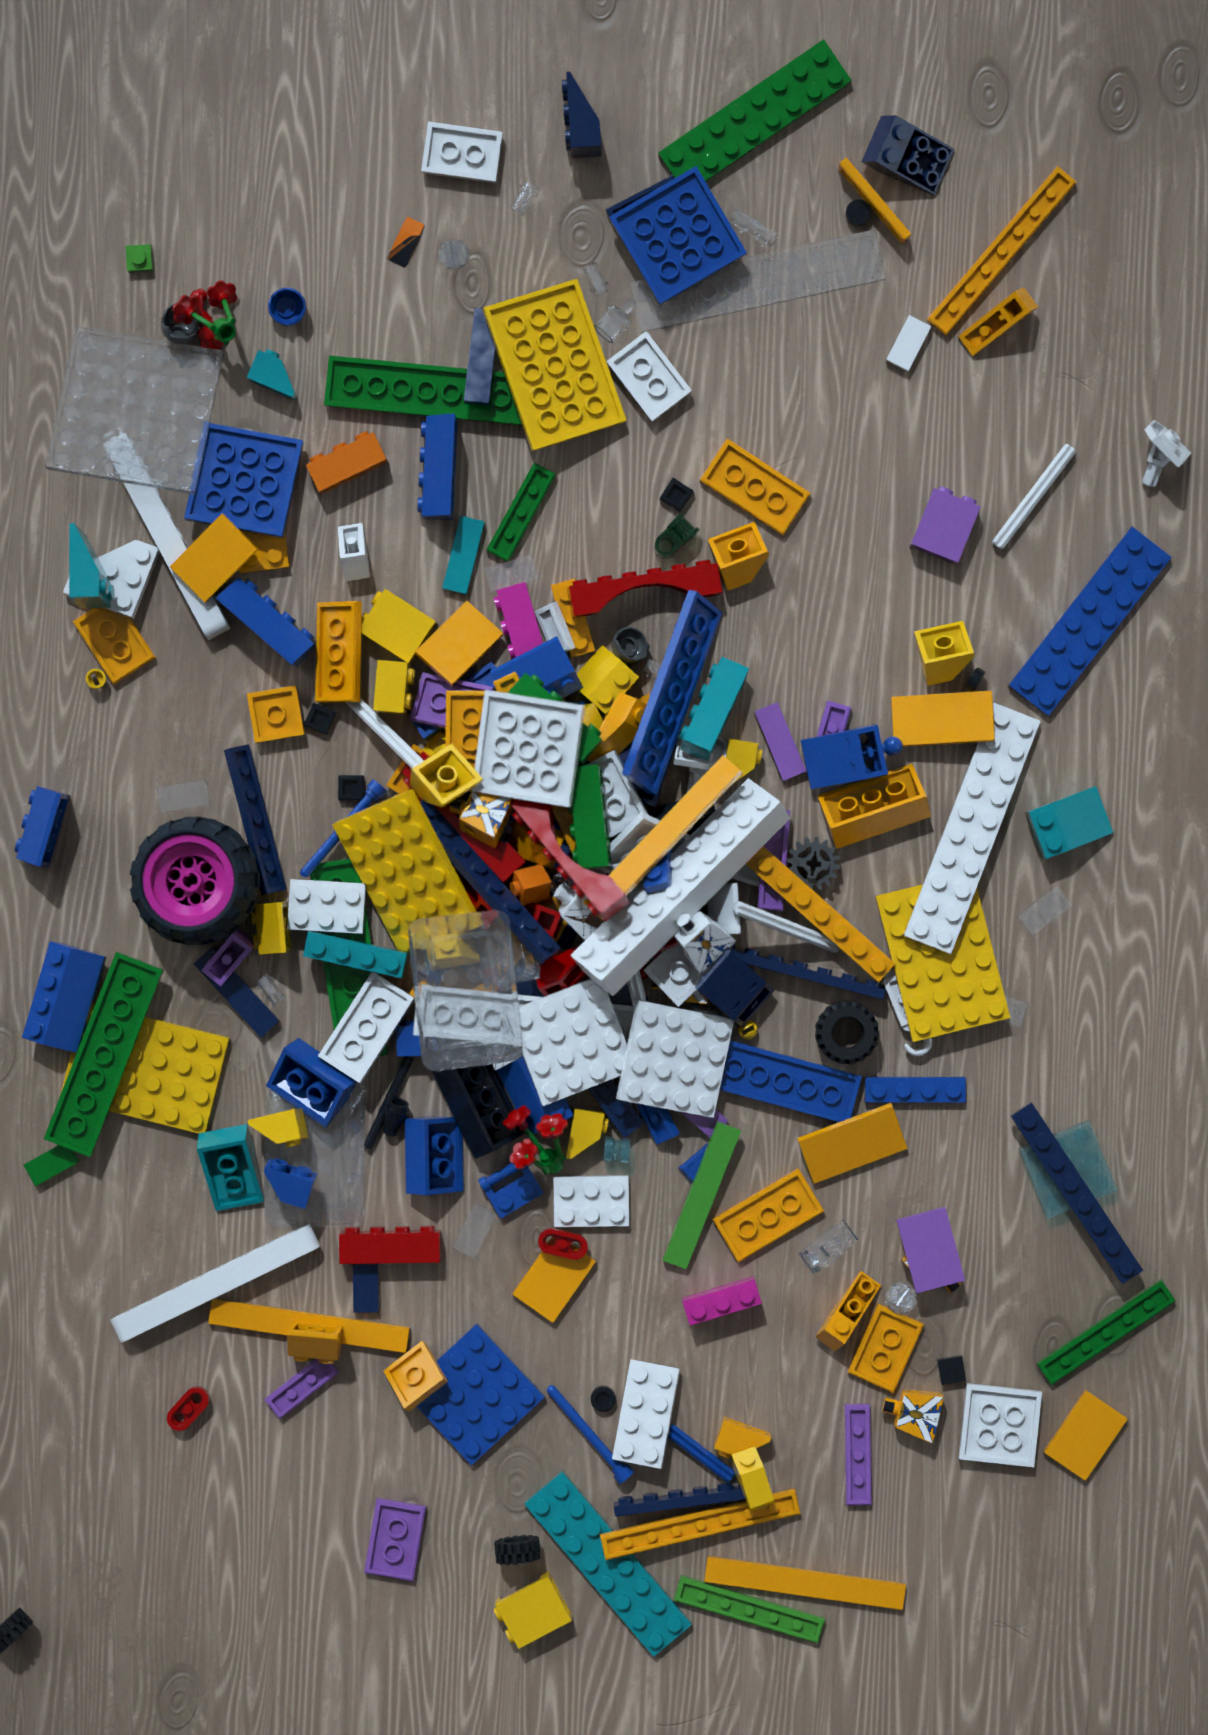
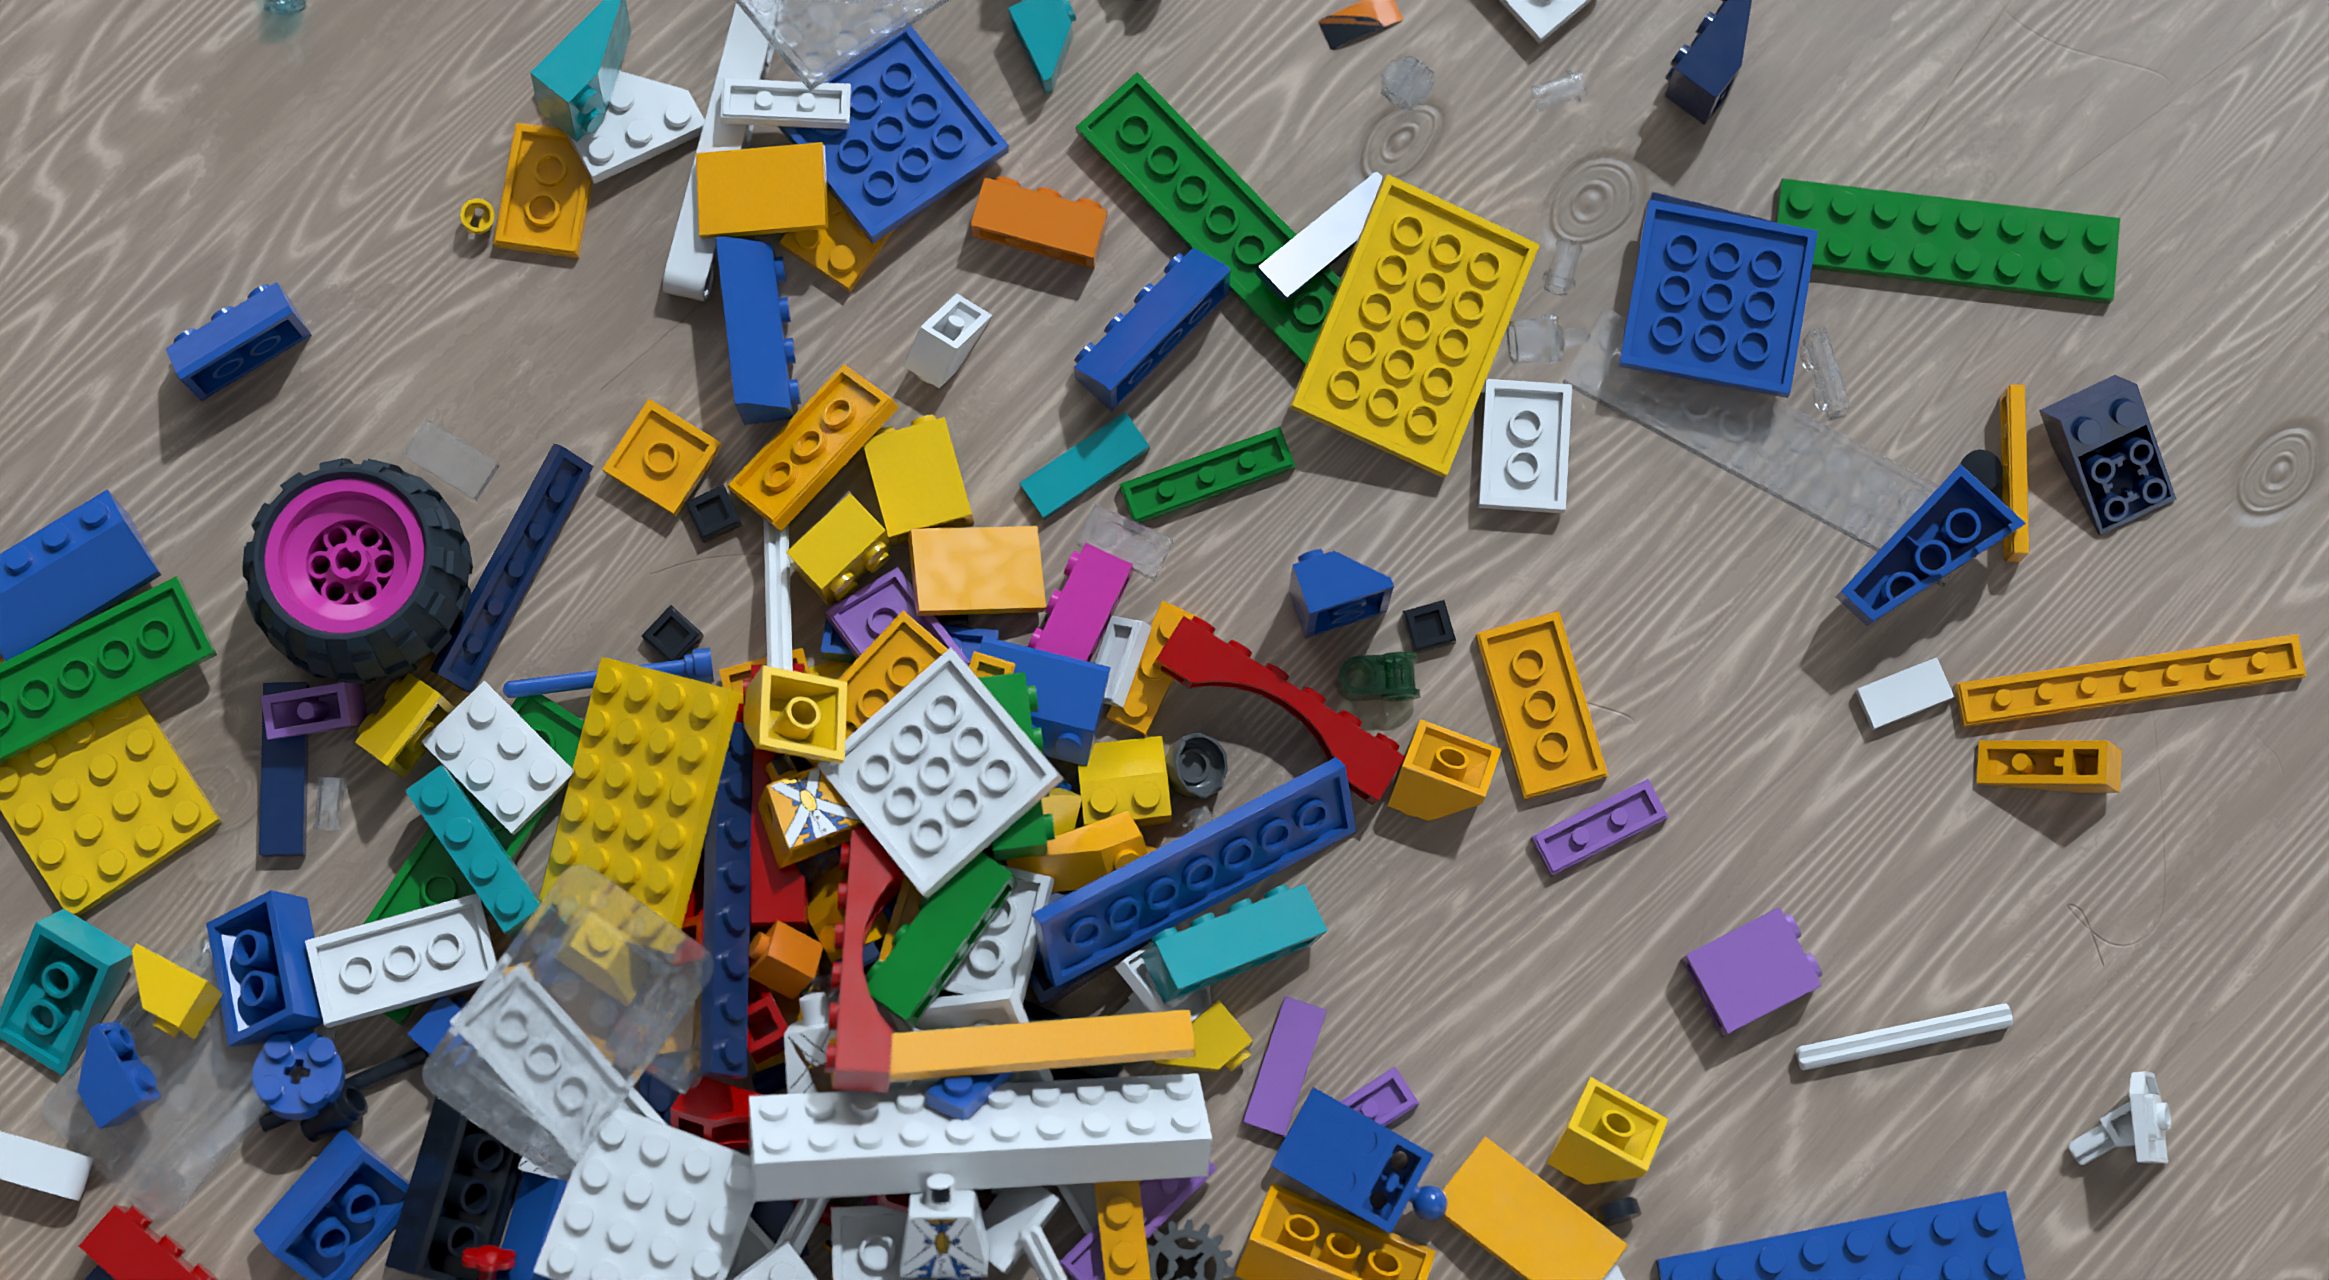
camera: 45 degrees right, 10 degrees down
(188, 509) = (785, 104): none -> white tile
(380, 1114) = (312, 1093): none -> blue plate
(624, 518) = (1336, 591): none -> blue slope
(826, 519) = (1599, 827): none -> medium lavender tile
(866, 266) = (1940, 536): none -> blue wedge

